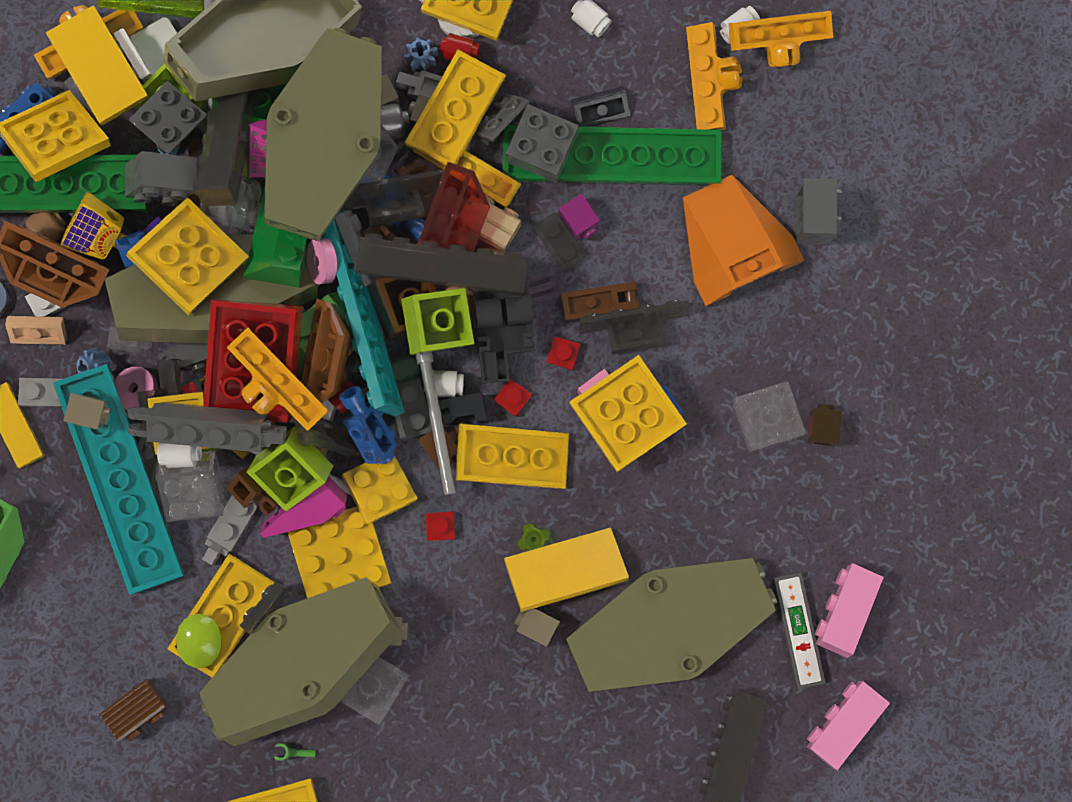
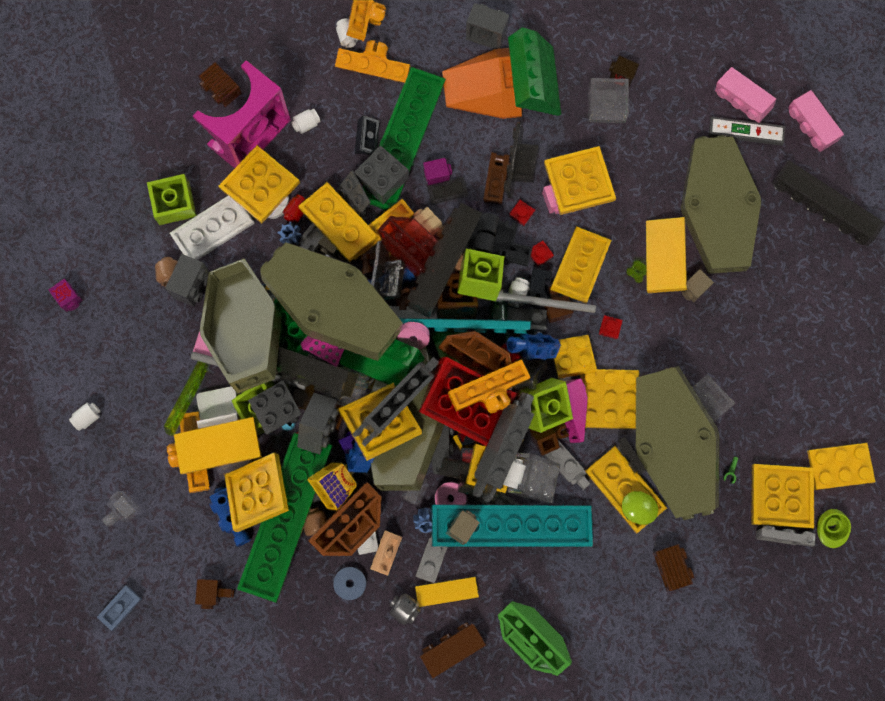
camera: 70 degrees left, 5 degrees down
(217, 266) = (397, 400): none -> dark grey hinge
(768, 301) = (534, 72): none -> green slope

